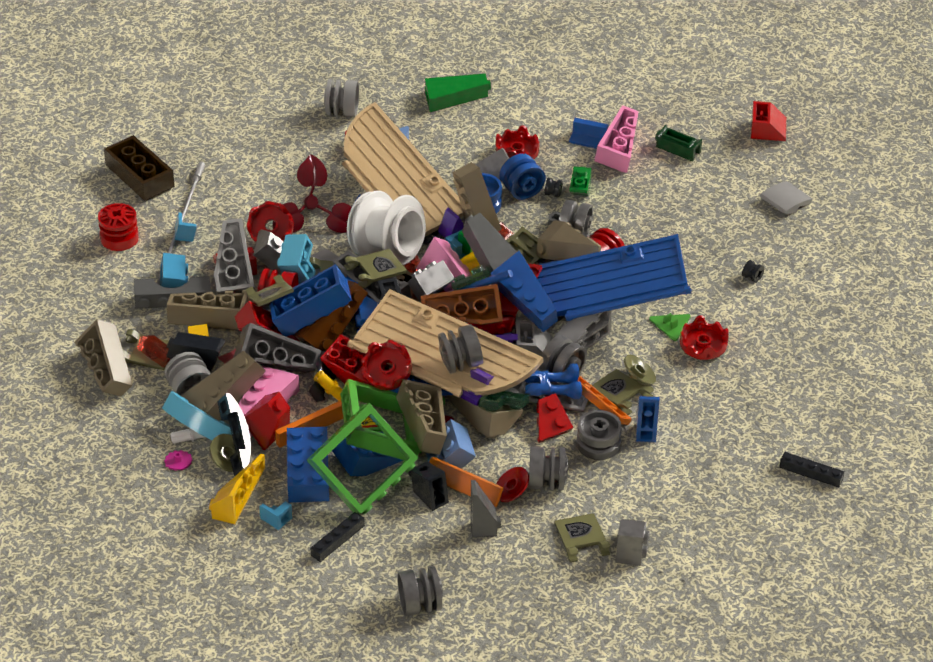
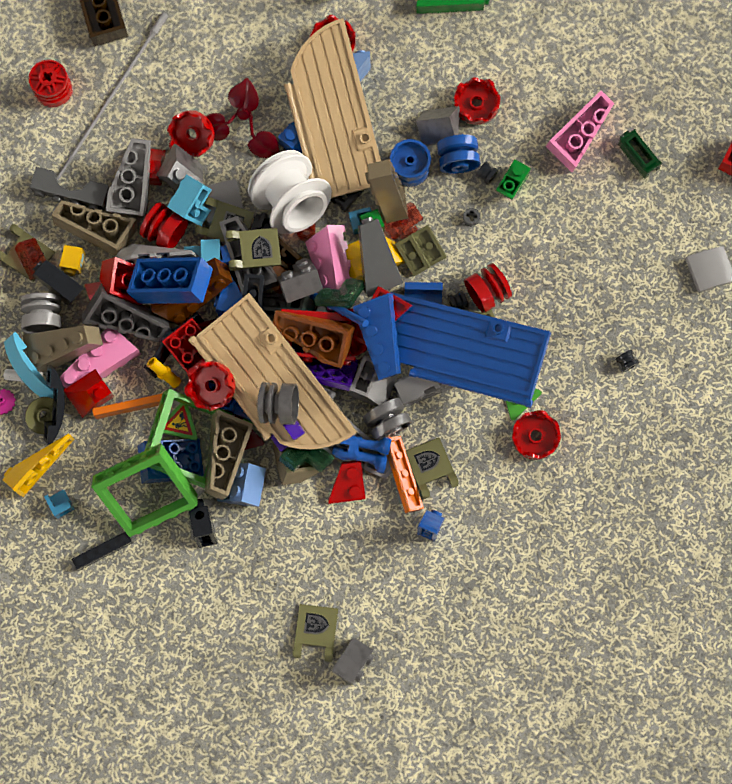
camera: 25 degrees right, 35 degrees up
(173, 270) = (80, 162): dark azure brick -> none
(183, 230) = (113, 105): dark azure panel -> none
(270, 293) = (140, 253): olive flag -> none
(302, 480) = (110, 445): blue brick -> none
(419, 590) = (145, 653): flat silver wheel -> none
(450, 223) = (362, 198): dark purple slope -> none
(461, 481) = (237, 531): orange tile -> none
(482, 514) = (232, 585): dark grey slope -> none
(514, 483) = (277, 551): red dish -> none
(547, 468) = (313, 550): flat silver wheel -> none
(564, 242) = (453, 274): dark tan wedge -> none
(578, 217) = (481, 236): flat silver wheel -> none
(587, 132) = (556, 107): blue panel -> none
(599, 435) = (378, 511): flat silver wheel -> none
(639, 370) = (462, 455): olive dish -> none
(811, 469) = (558, 635): black piece -> none

